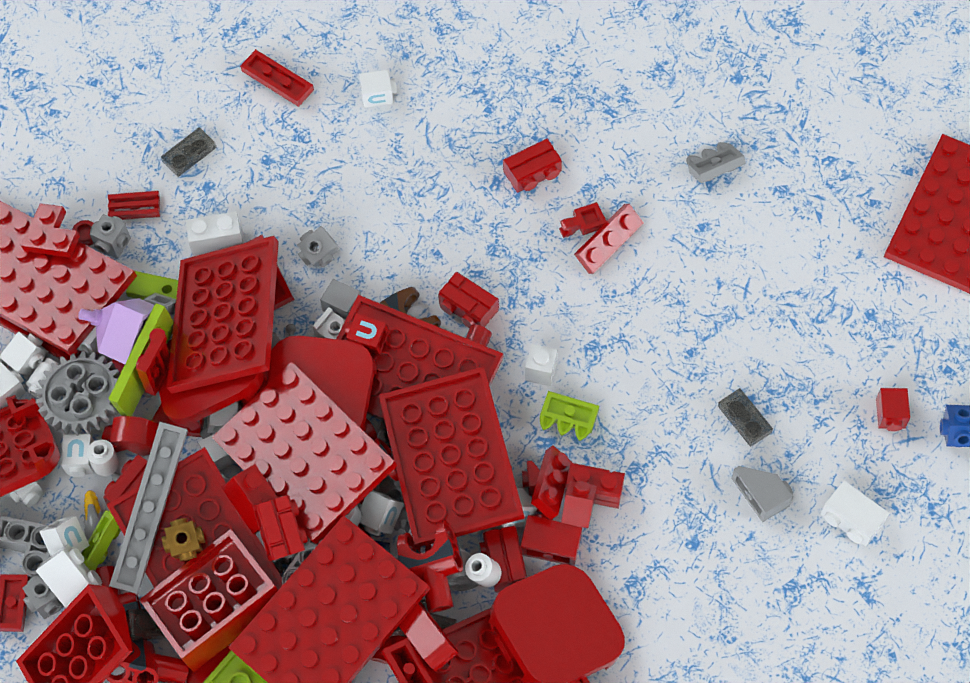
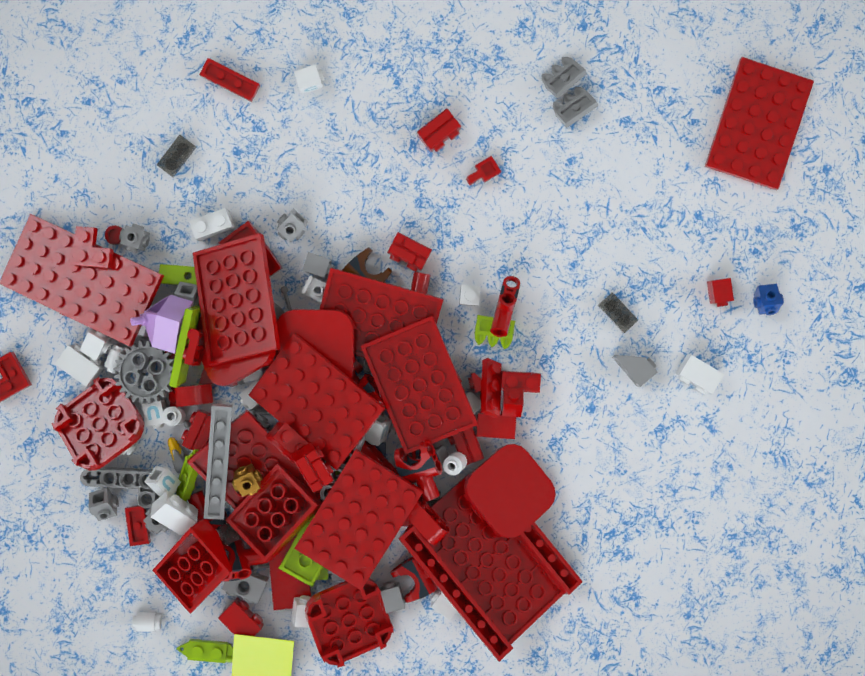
camera: 10 degrees left, 25 degrees up
(134, 201) = (129, 210): red tile -> none
(368, 332) = (343, 301): red brick -> none
(589, 375) = (505, 307): none -> red connector
(609, 238) = (504, 184): plate -> none
(704, 128) = (563, 77): none -> light grey plate

